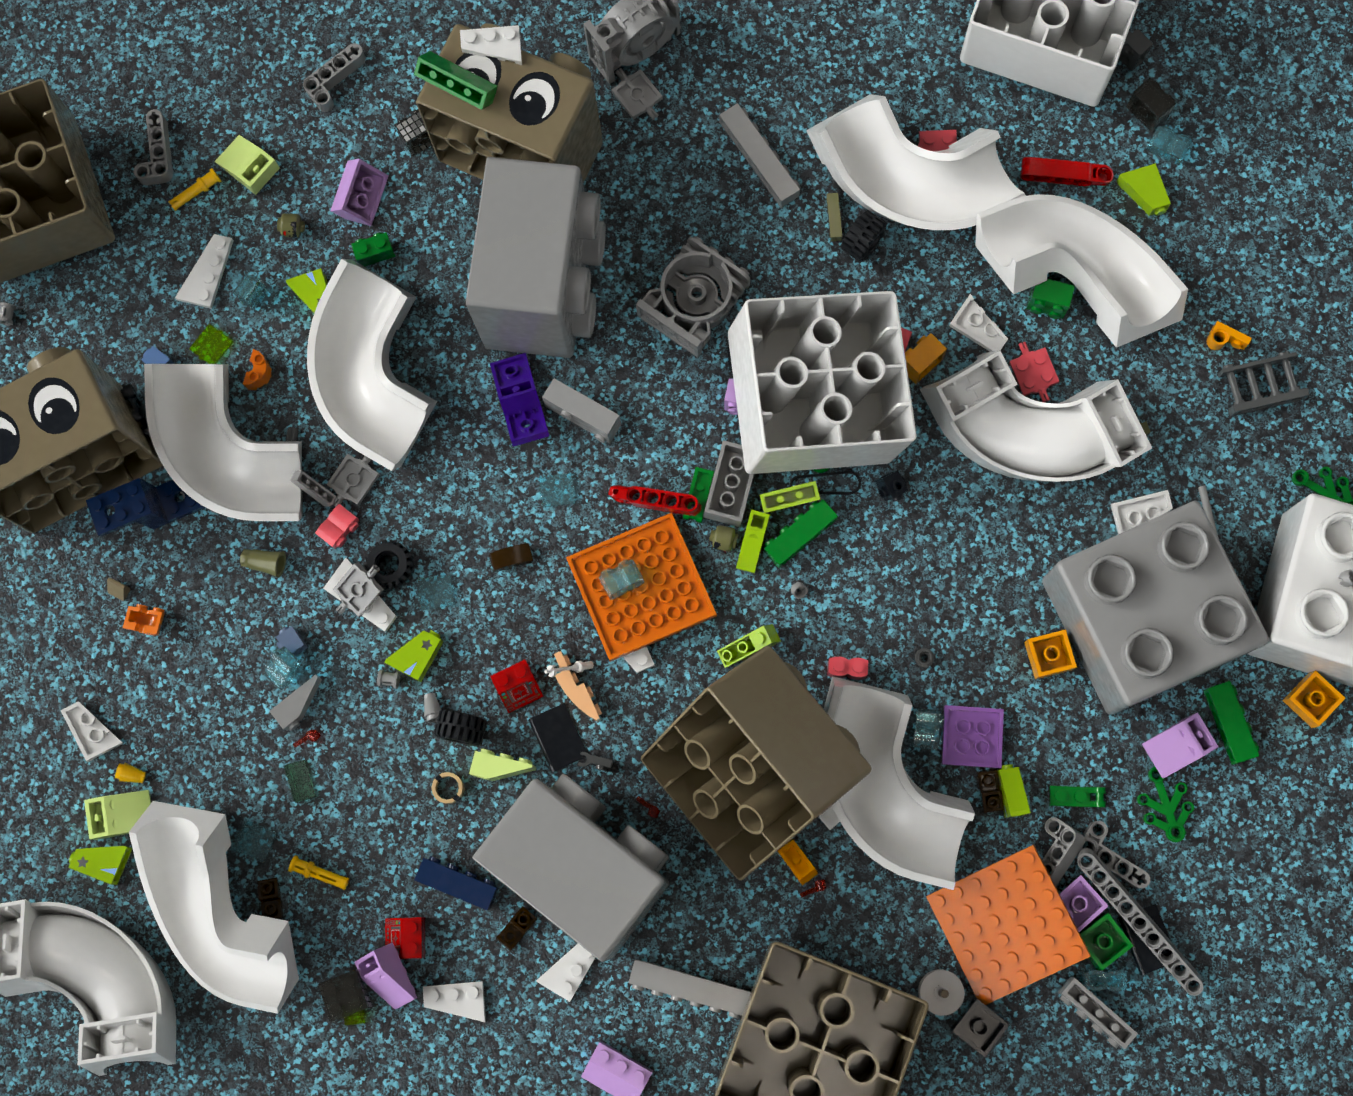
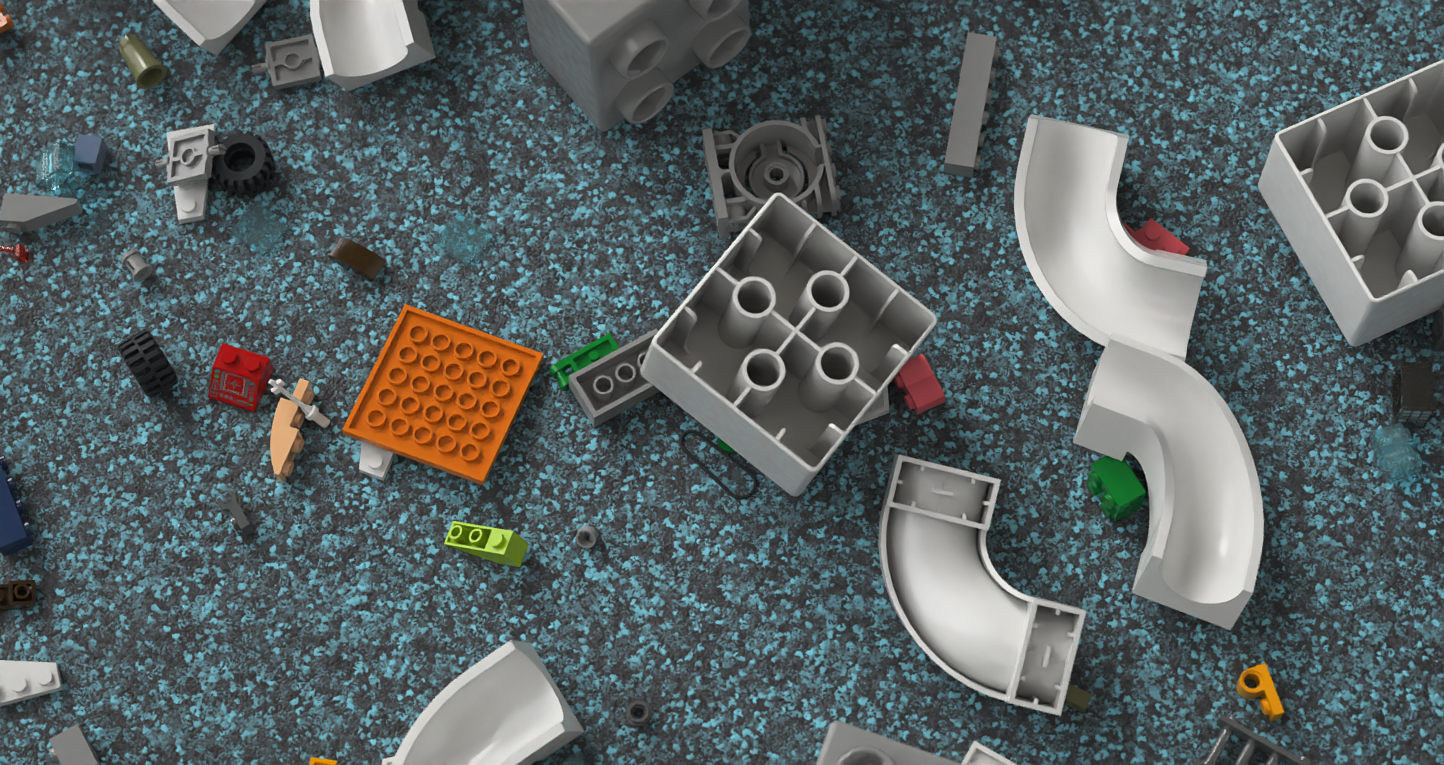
camera: 40 degrees right, 10 degrees down
(313, 488) = (246, 34): light grey piece -> none
(337, 526) = (235, 90): coral brick -> none
(416, 655) = (182, 267): lime slope -> none
(431, 707) = (149, 322): light grey cone -> none
(460, 791) = (94, 423): tan piece -> none
(493, 768) = (144, 430): yellowish green slope -> none
(519, 399) = (510, 123): dark purple bracket -> none
(557, 737) = (228, 460): black piece -> none
(573, 867) = (98, 570): light grey piece -> none
(582, 411) = (556, 185): light grey brick -> none
(621, 579) = (429, 366): clear light blue brick -> none
(624, 495) = (543, 335): red piece -> none
(653, 810) = (240, 610): clear red hand -> none
(723, 538) = (566, 422): olive head -> none
(753, 541) = (590, 449): lime slope -> none
(755, 761) = (359, 630): dark tan piece -> none
(789, 497) = (665, 440): lime brick -> none
(801, 533) = (641, 483): green brick -> none
(834, 218) = (984, 224): olive piece -> none
(854, 668) = (558, 653): coral brick -> none
(863, 235) = (989, 263): black tyre -> none
(892, 486) = (783, 521): black brick -> none
(924, 357) = (928, 429): light orange brick -> none
(977, 326) = (1018, 452): white wing -> none
(1034, 372) = (1030, 546): coral plate -> none
(1065, 172) = (1260, 385): red piece -> none
(1146, 189) = (1326, 473): lime slope -> none

